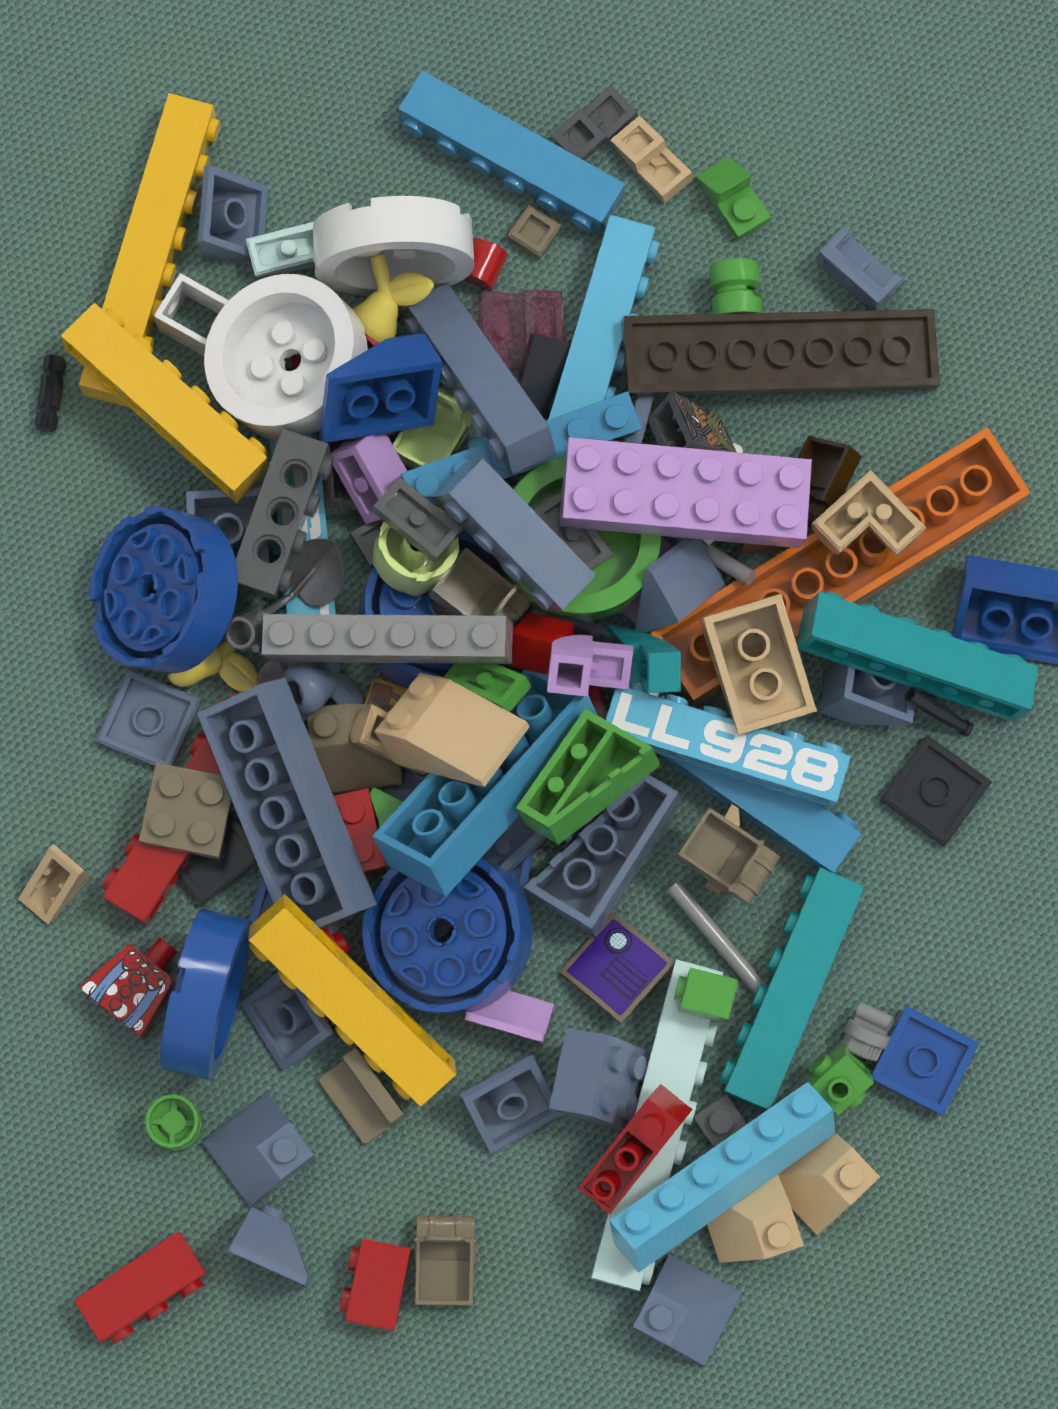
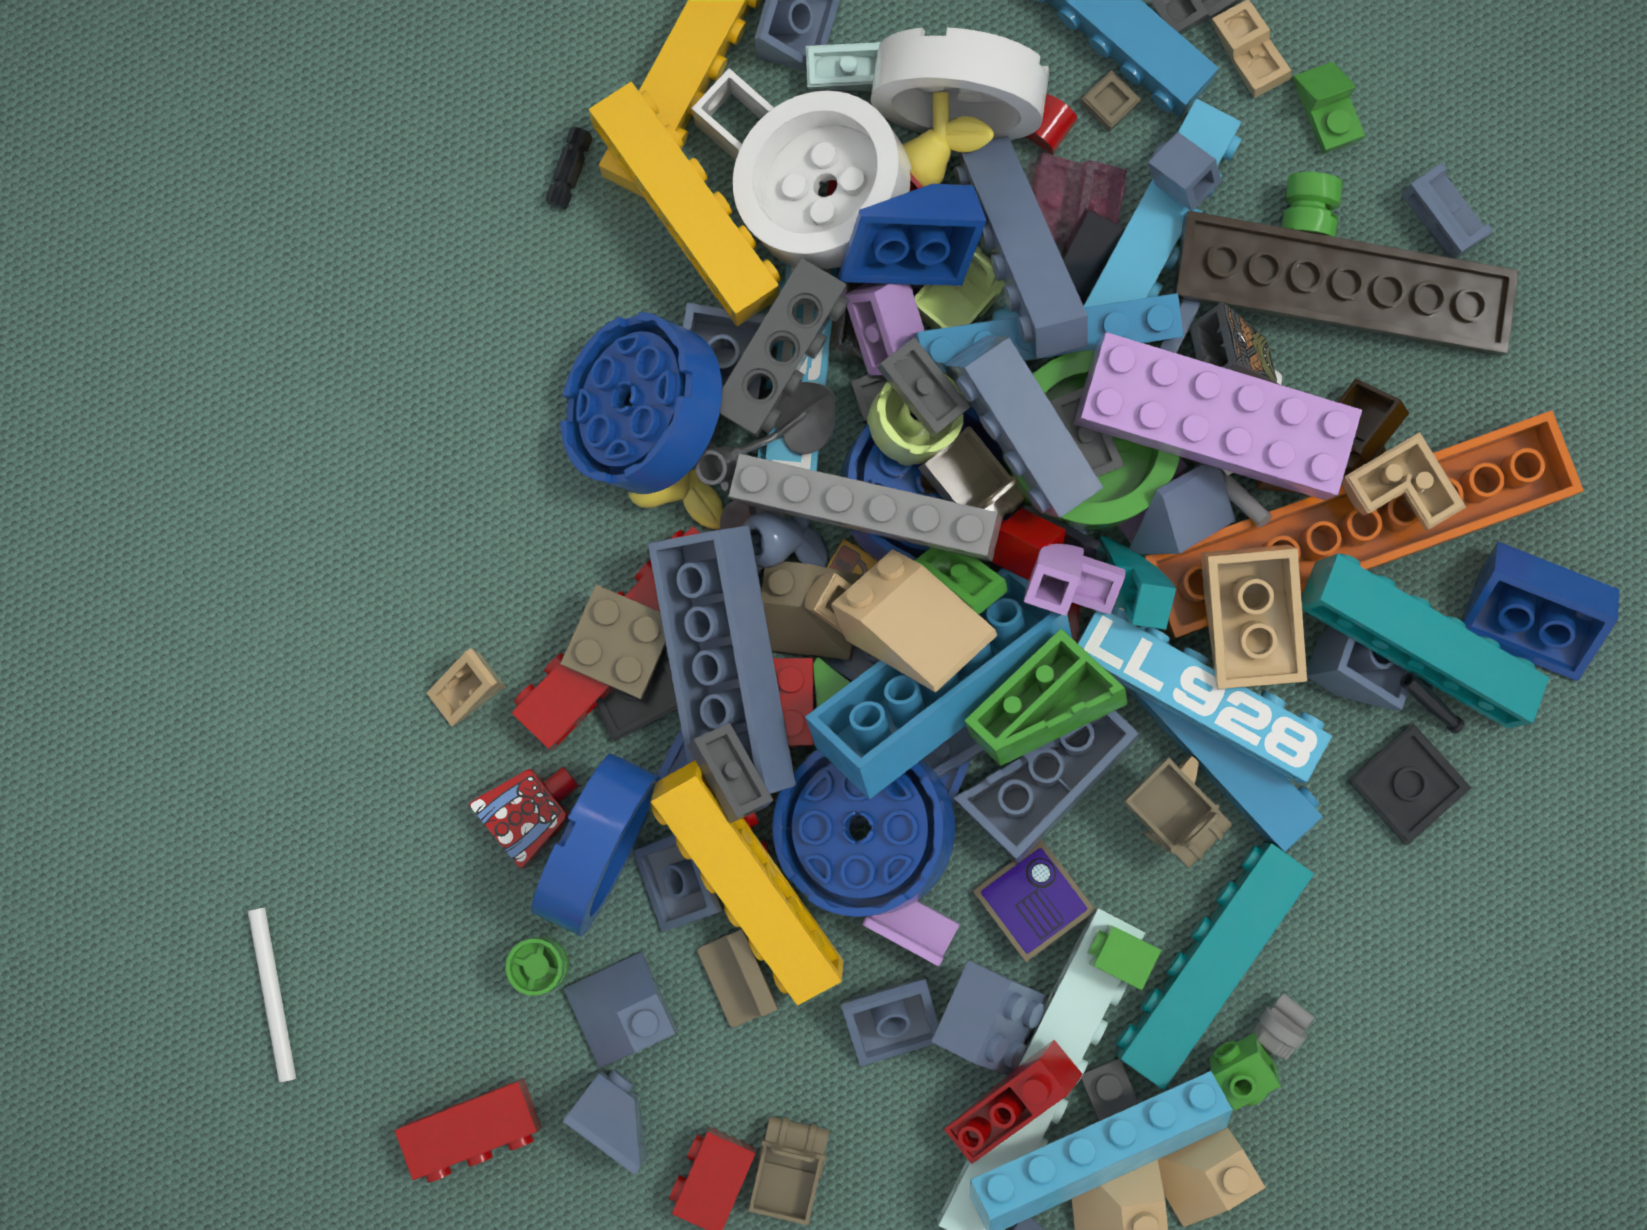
camera: 20 degrees right, 5 degrees up
(148, 720) = (600, 534): sand blue tile -> none
(315, 900) = (730, 773): none -> dark grey plate
(612, 281) = (1184, 171): none -> sand blue brick
(715, 936) = (1144, 890): light grey bar -> none
(924, 1061) = (1336, 1069): blue plate -> none

